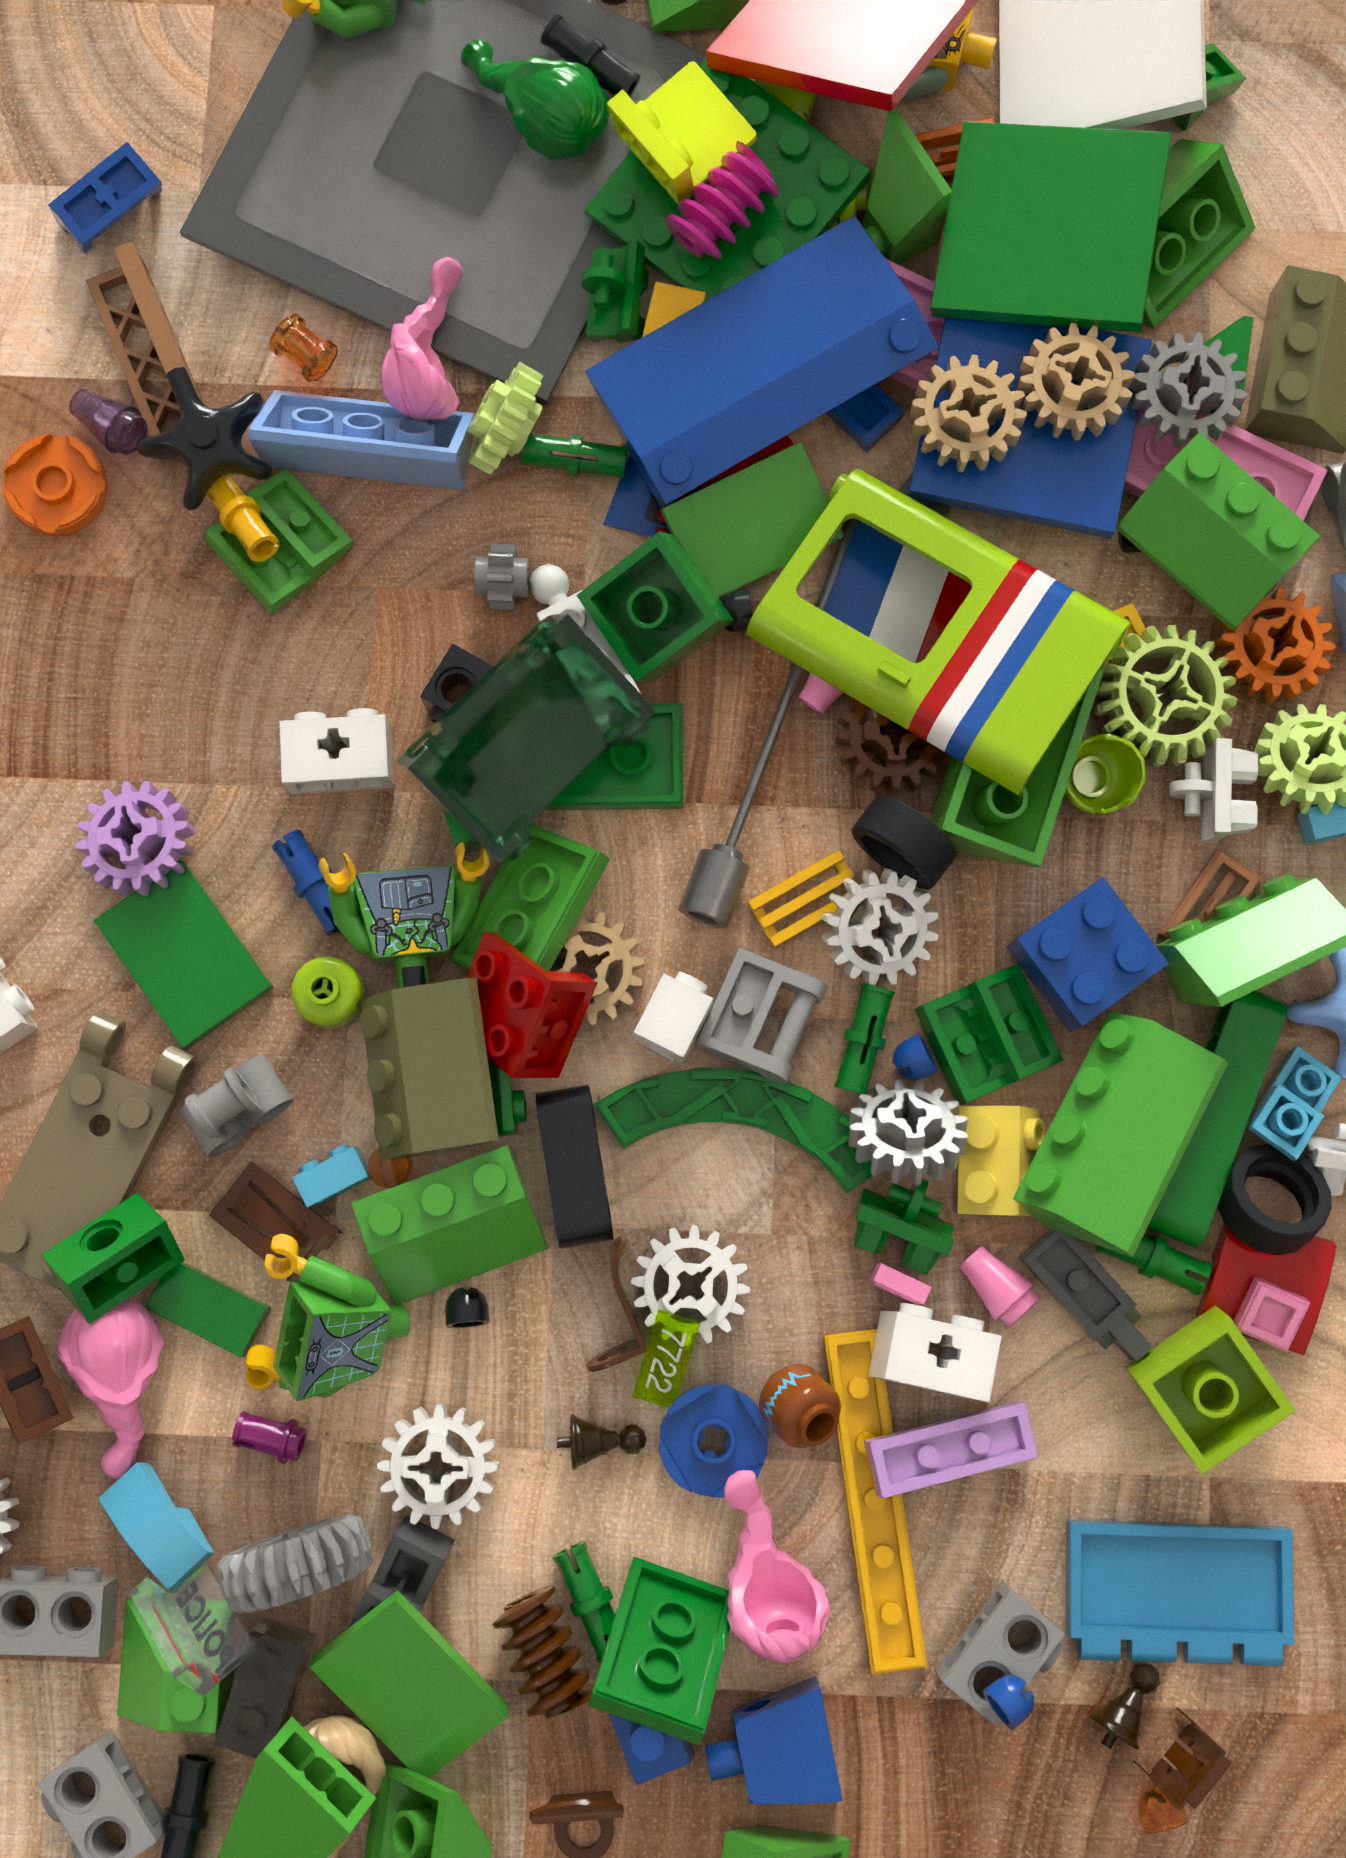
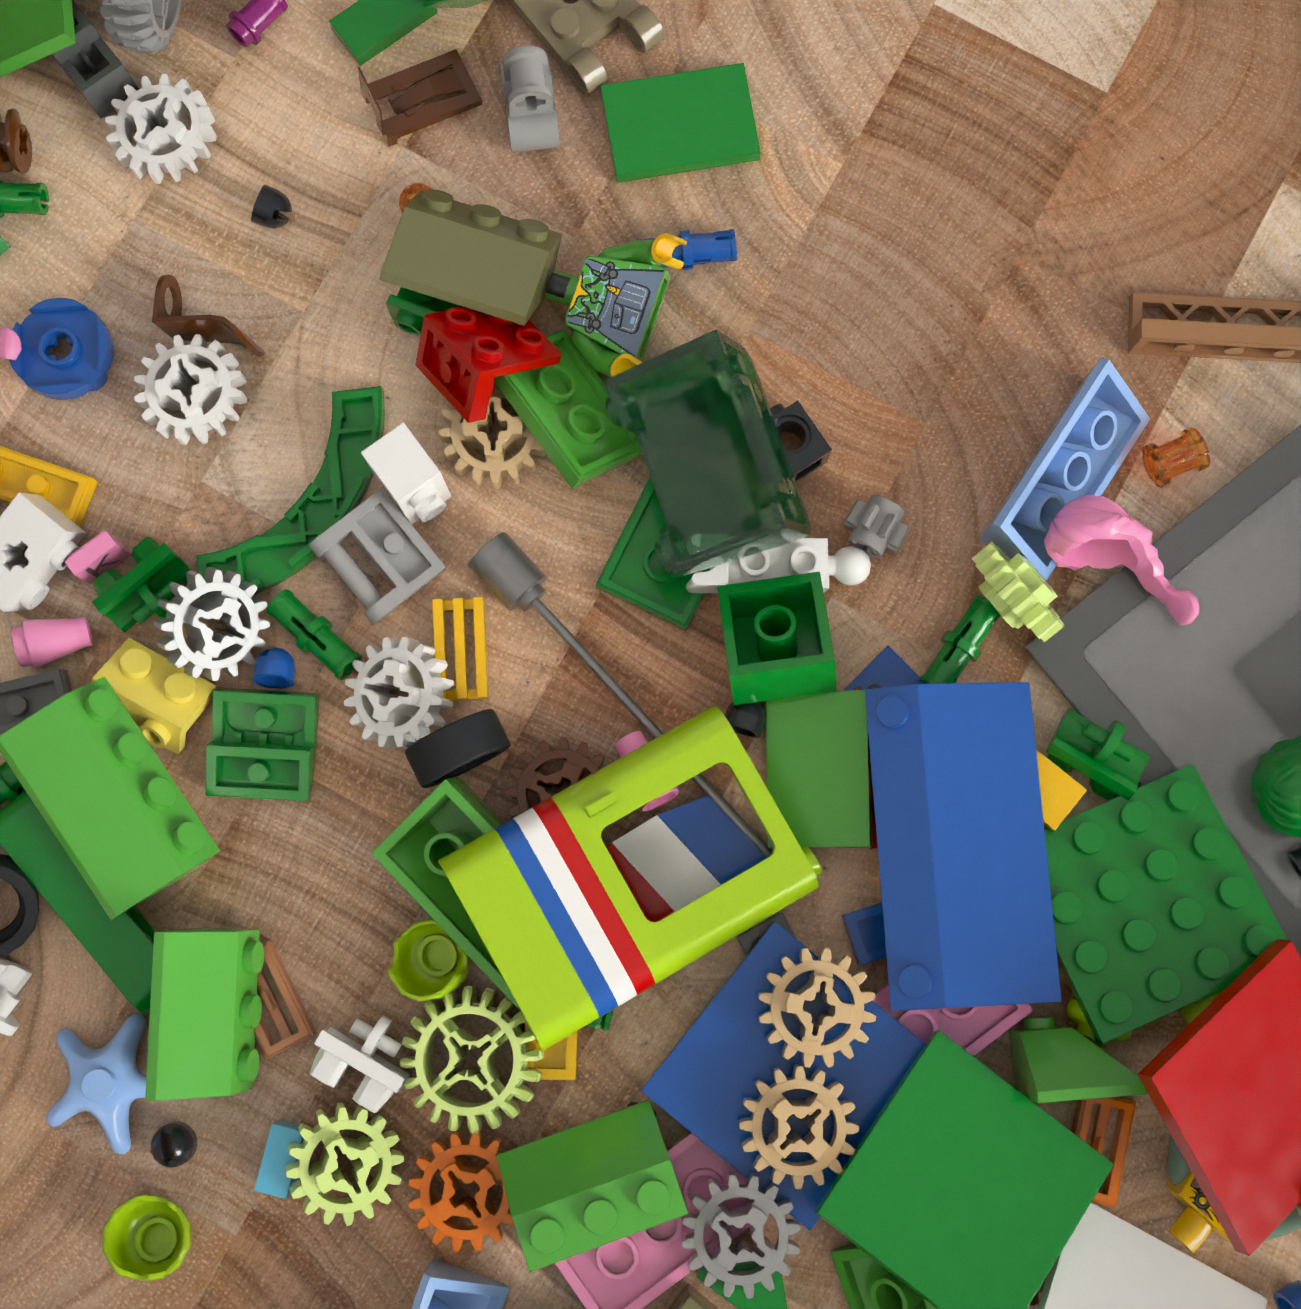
camera: 115 degrees right, 0 degrees up
(54, 484) = (1148, 198): orange tile -> none
(109, 421) = (1181, 264): cone -> none
(152, 851) = (818, 125): lavender gear -> none
(206, 439) = (1121, 328): black animal -> none
(242, 517) = (1040, 330): yellow pin -> none
(307, 543) = (1005, 358): bright green slope -> none
(328, 1330) = (308, 85): bright green torso -> none
(331, 1177) = (433, 152): medium azure piece -> none
(343, 1002) = (583, 214): lime head -> none
(361, 766) = (792, 289): white brick -> none
(450, 1225) = (345, 225): bright green slope -> none
(574, 1166) = (337, 344): black beam -> none
(591, 1441) = (115, 255): dark brown piece -> none
(666, 1358) = (142, 340): clear neon green sticker -> none
(681, 129) = (1219, 879): neon yellow bracket -> none
(722, 202) = (1125, 880): dark pink piece -> none
(800, 1406) = (44, 424): dark orange head -> none
(1087, 955) = (279, 859): blue brick -> none
(1294, 1103) = (59, 971): medium azure slope -> none

